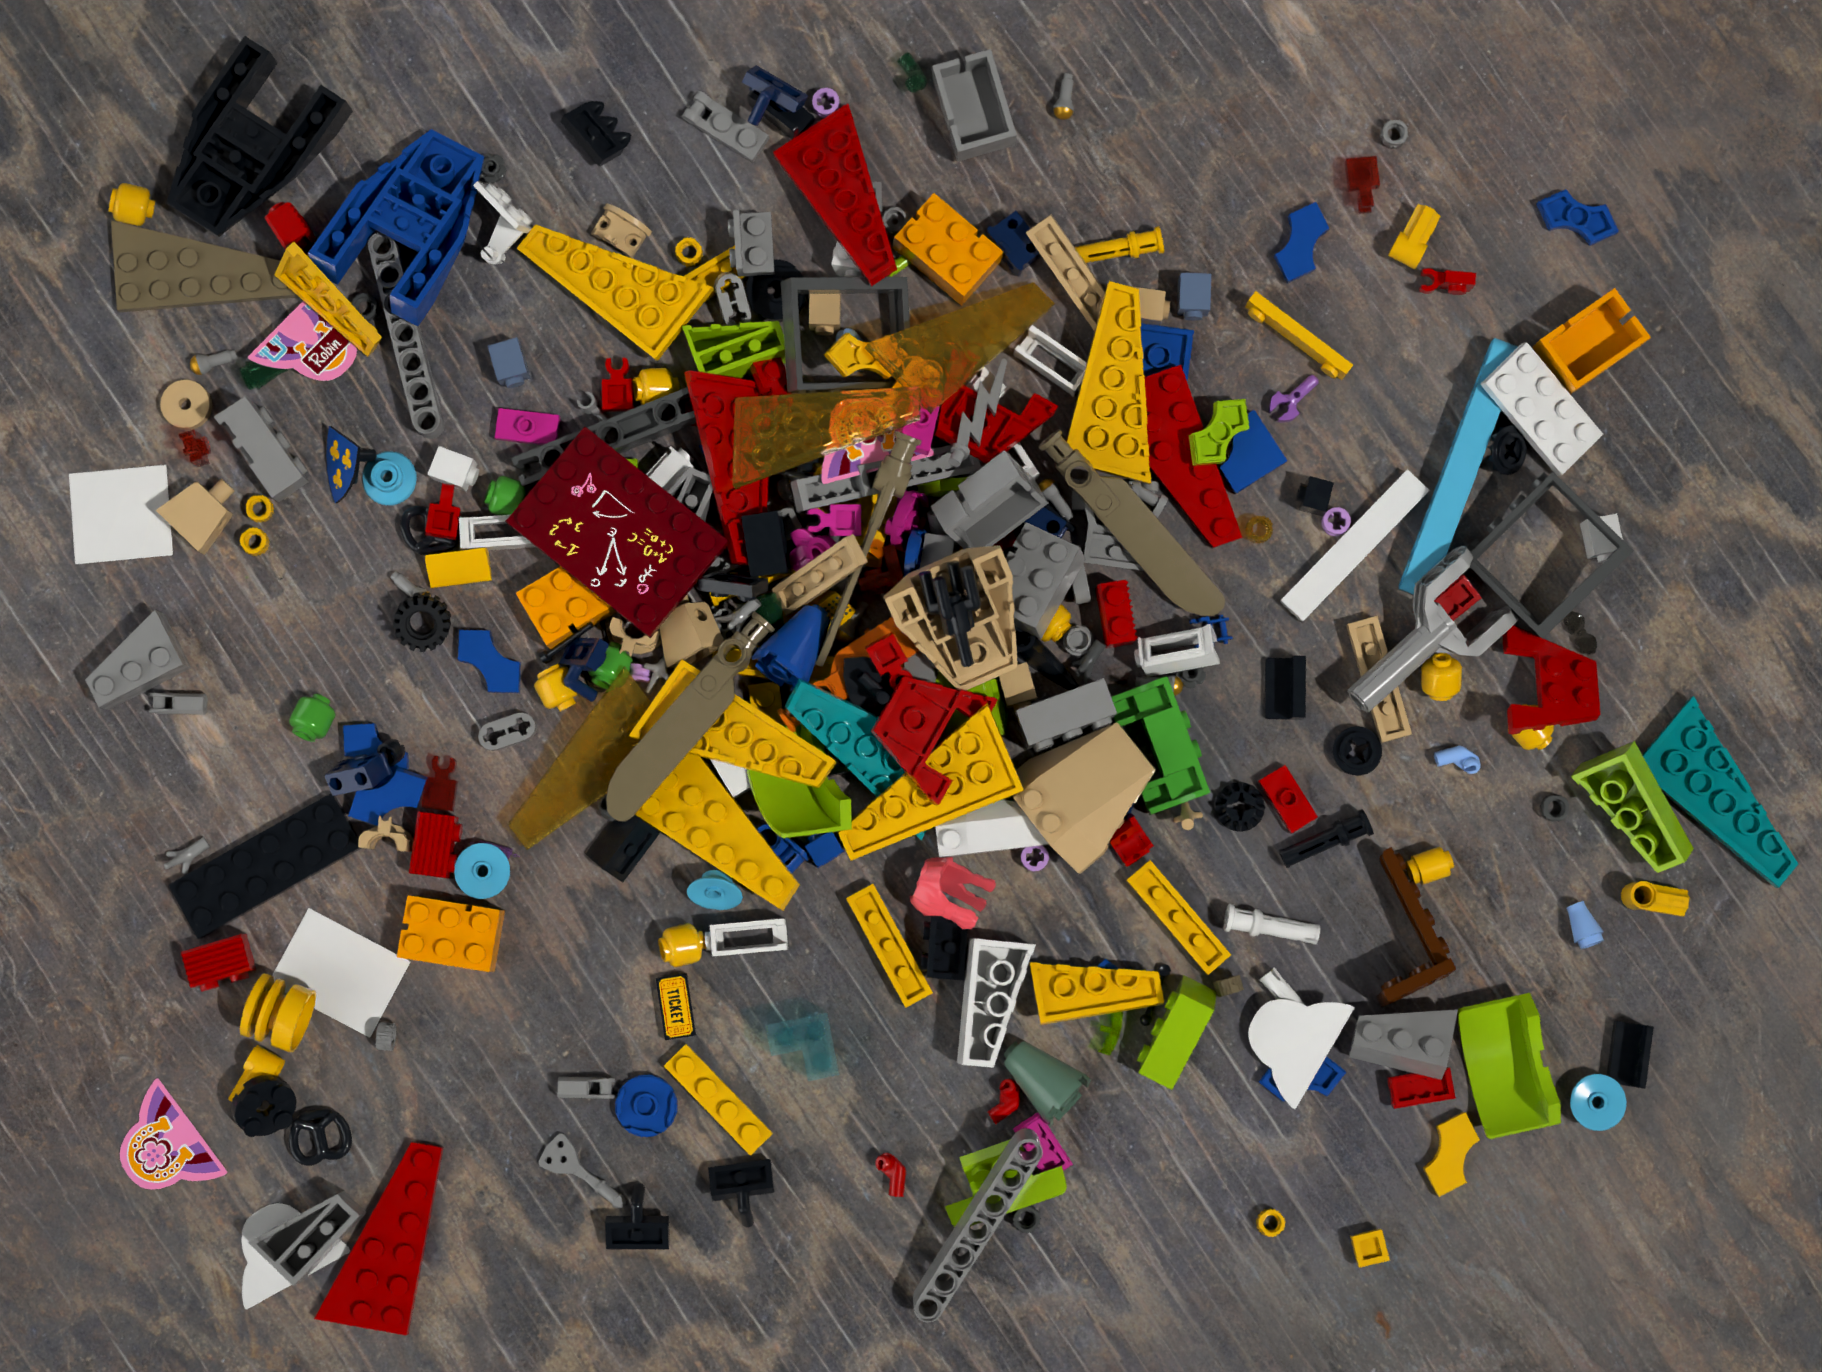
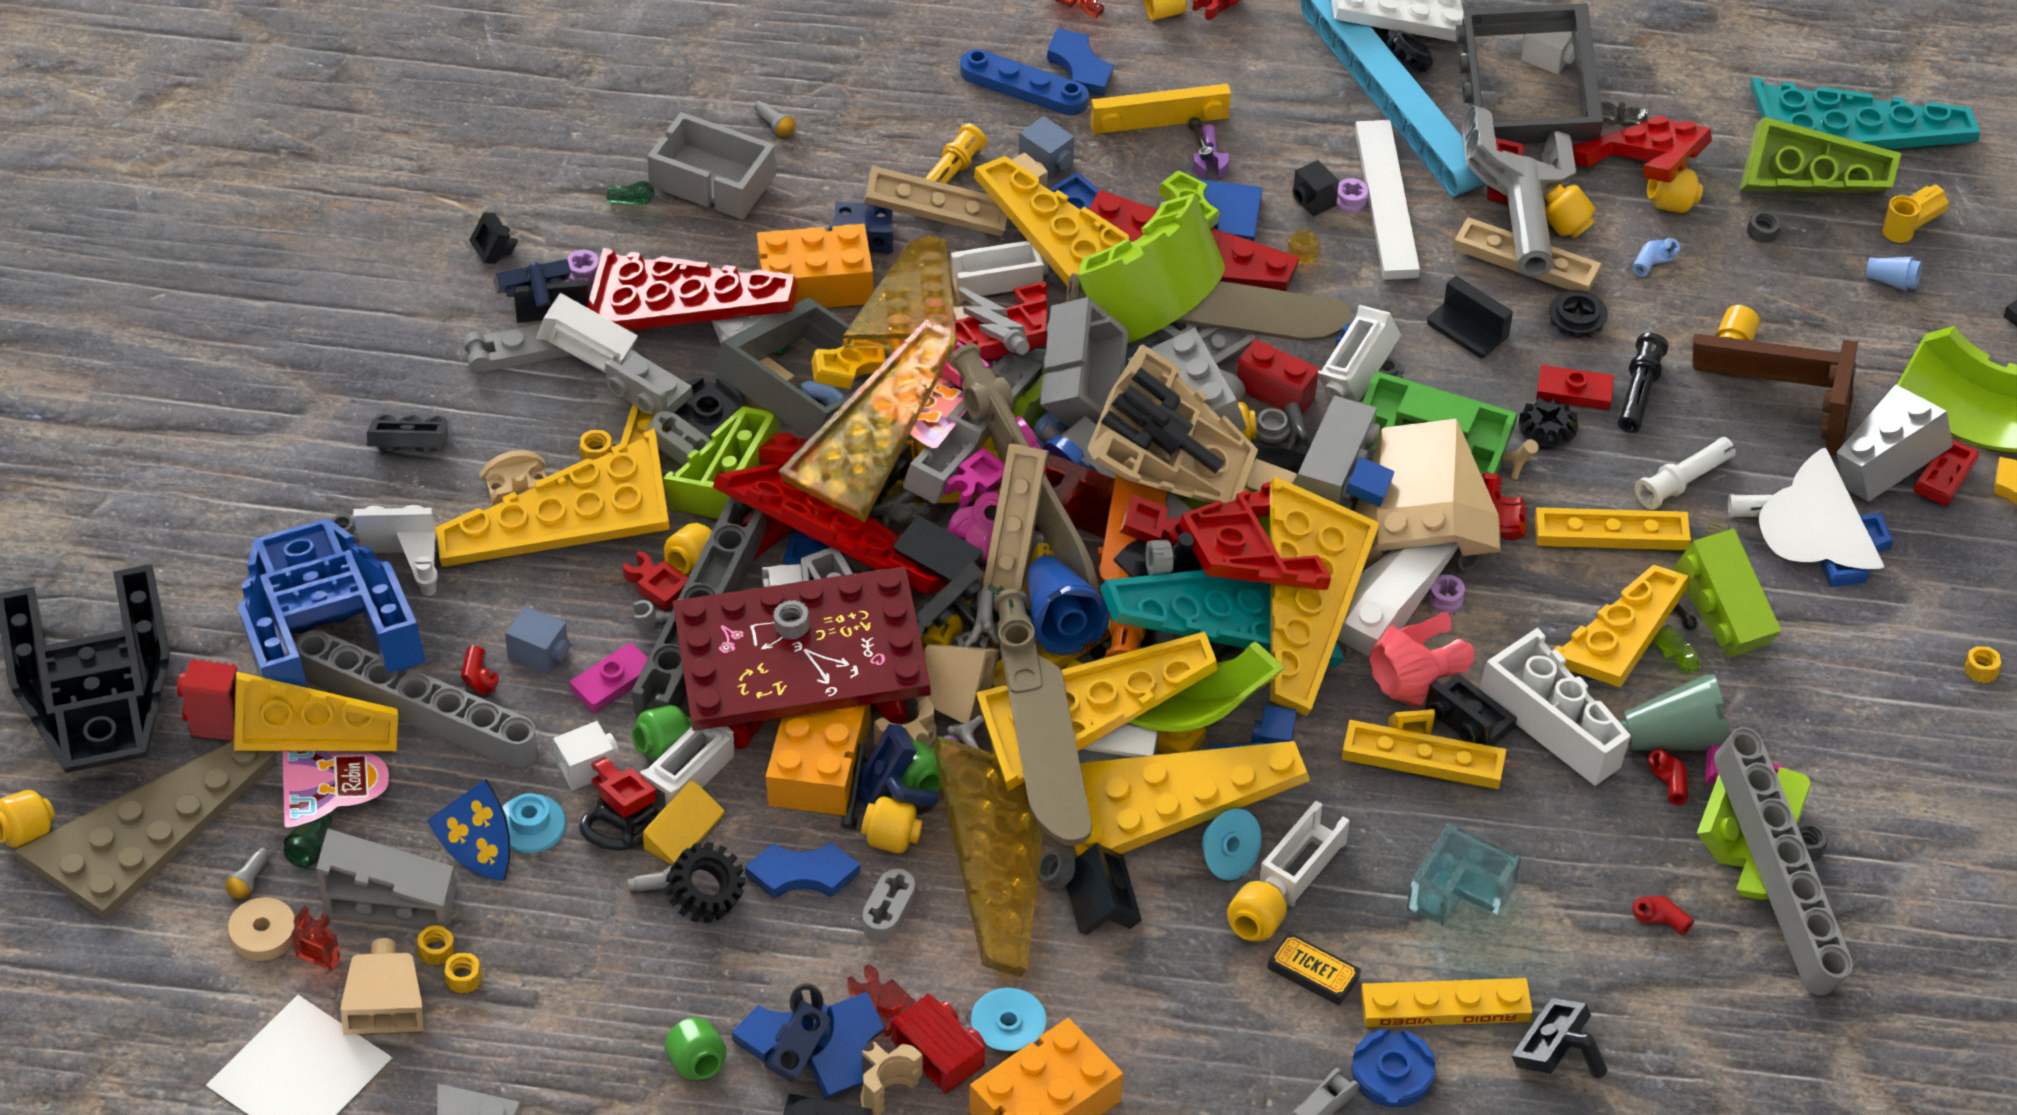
camera: 50 degrees left, 35 degrees down
(457, 349) = (475, 675): none -> red arm
(623, 504) = (792, 629): none -> light grey axle
(759, 170) = (586, 334): none -> white window
(792, 26) = (492, 238): none -> black tile
(856, 692) = (1159, 557): none -> light grey axle
(909, 917) = (1415, 721): none -> yellow slope
(1050, 758) = (1369, 481): none -> blue tile
(1108, 486) = (1158, 274): none -> lime panel
(1248, 223) = (1024, 82): none -> blue plate
(1282, 400) = (1205, 152): none -> black hinge

